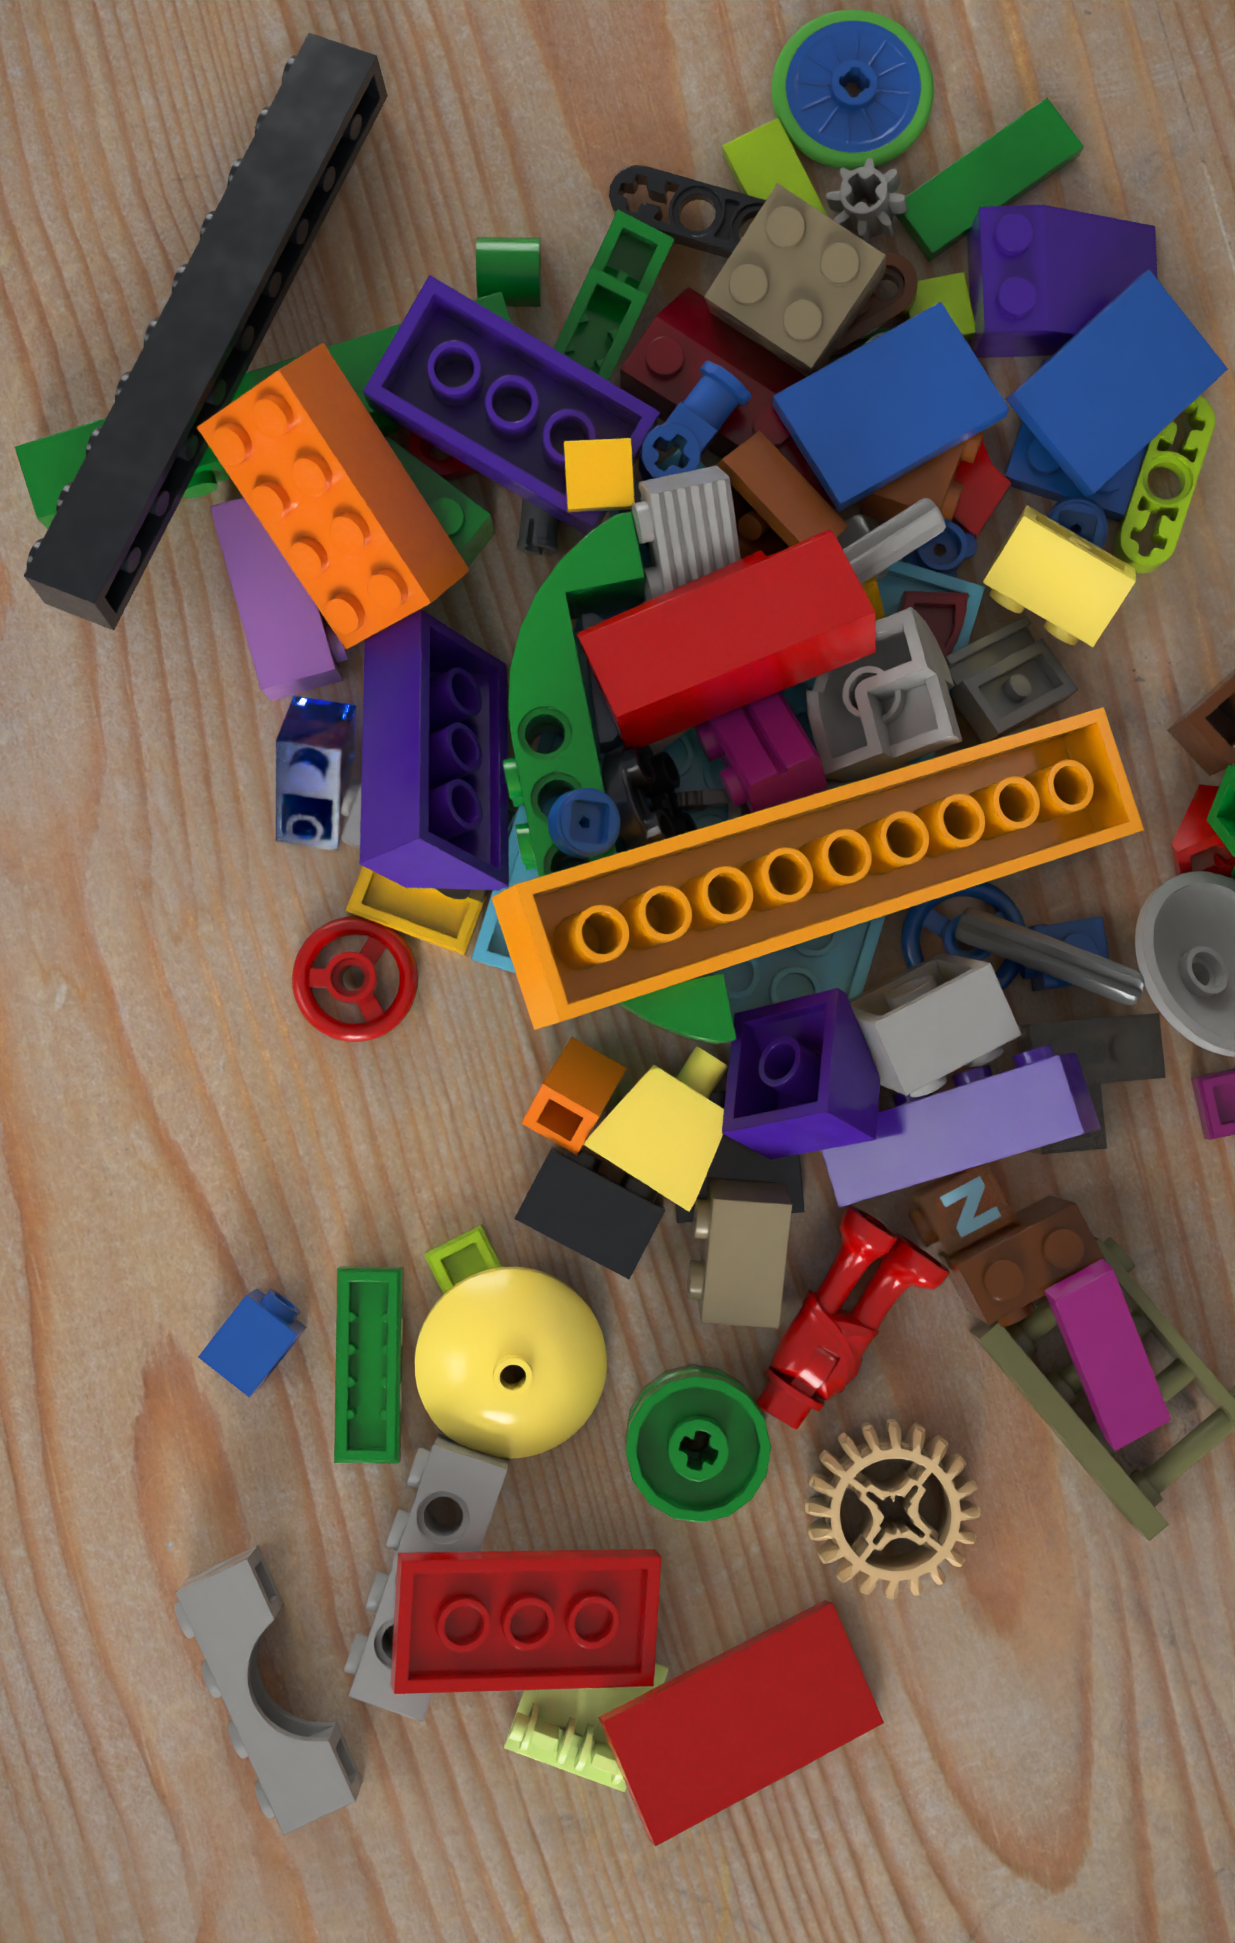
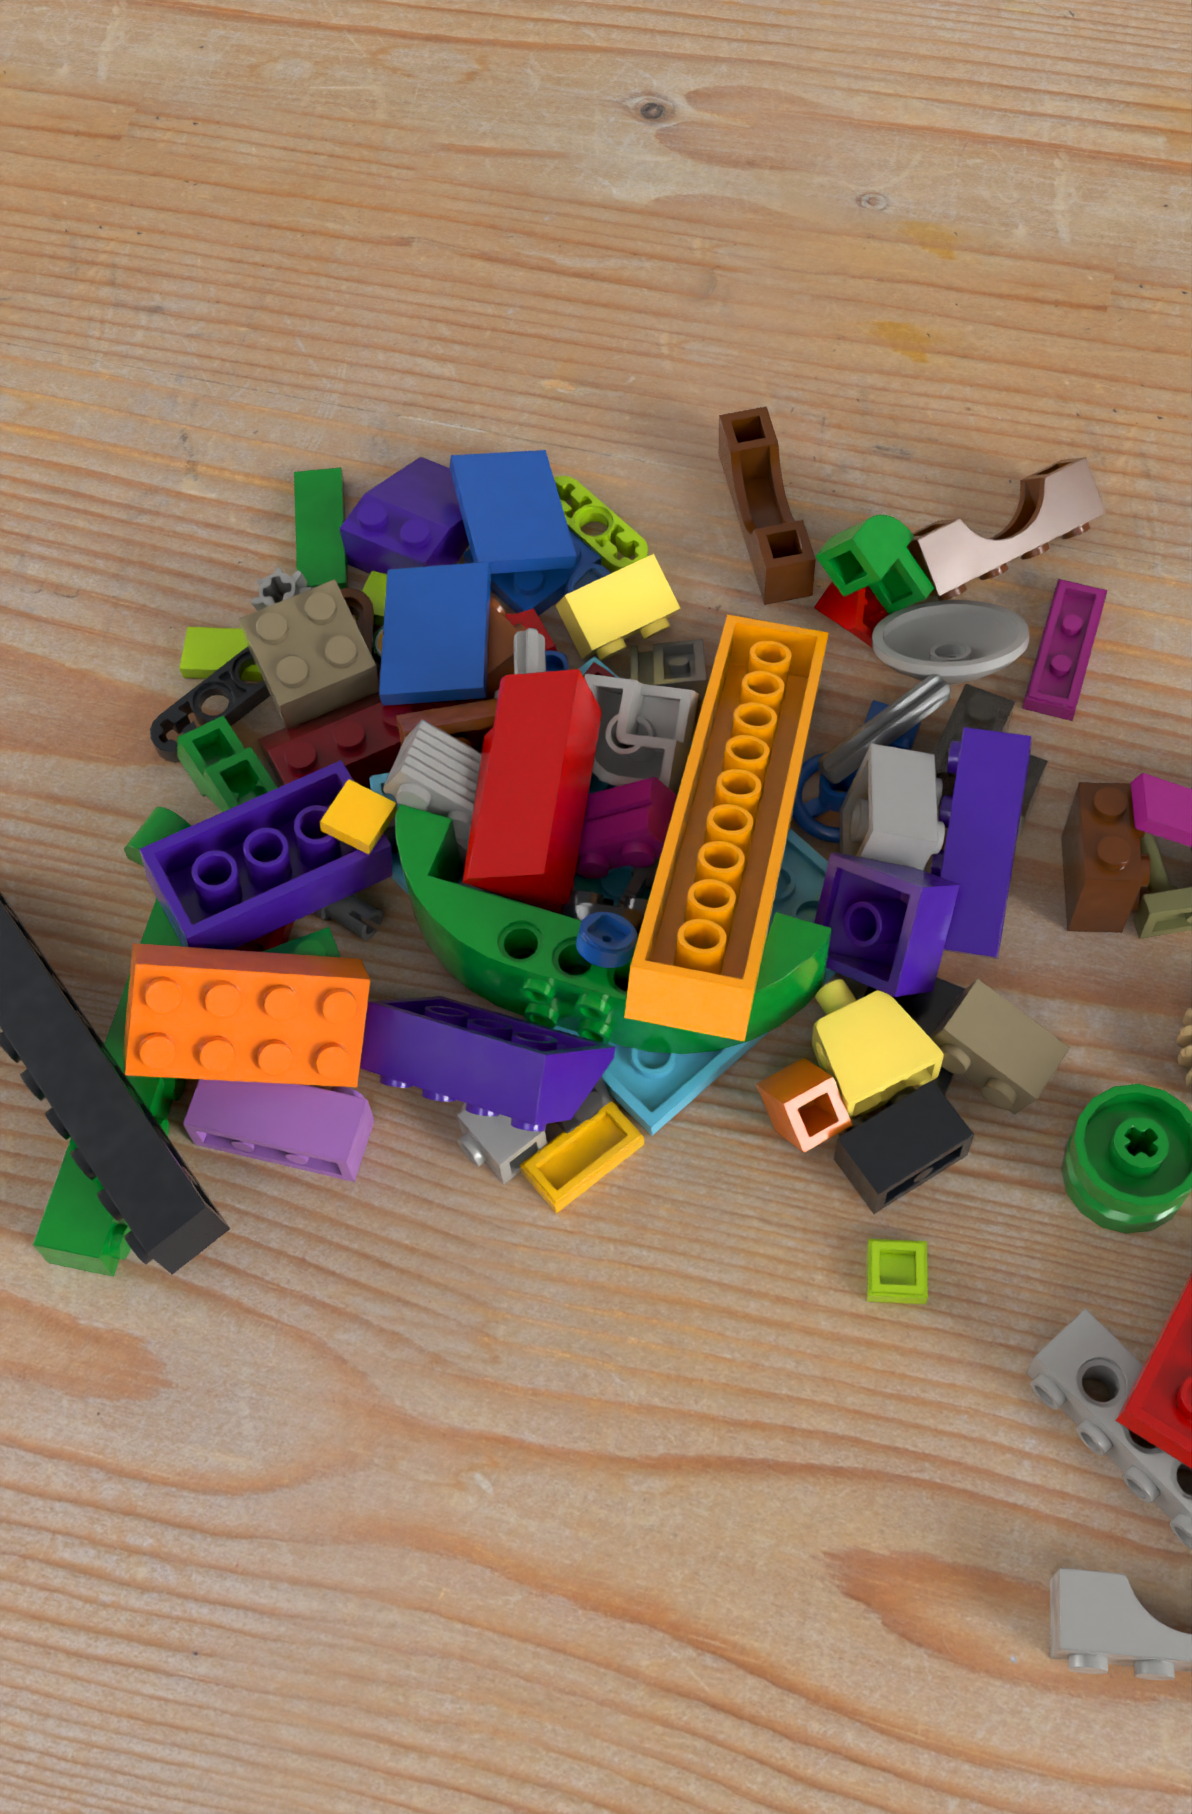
camera: 55 degrees left, 25 degrees down
(254, 1340) = (868, 1468): blue brick -> none
(314, 771) = (434, 1167): clear blue slope -> none
(368, 1365) = (939, 1388): green plate -> none
(379, 938) = (609, 1211): red piece -> none
(504, 1321) = (975, 1300): light yellow dish -> none
(694, 422) = (364, 750): blue connector -> none
(826, 1343) = (1098, 1032): red piece -> none
(862, 51) = (201, 577): blue wheel -> none
(960, 1209) = (1041, 888): clear orange brick -> none

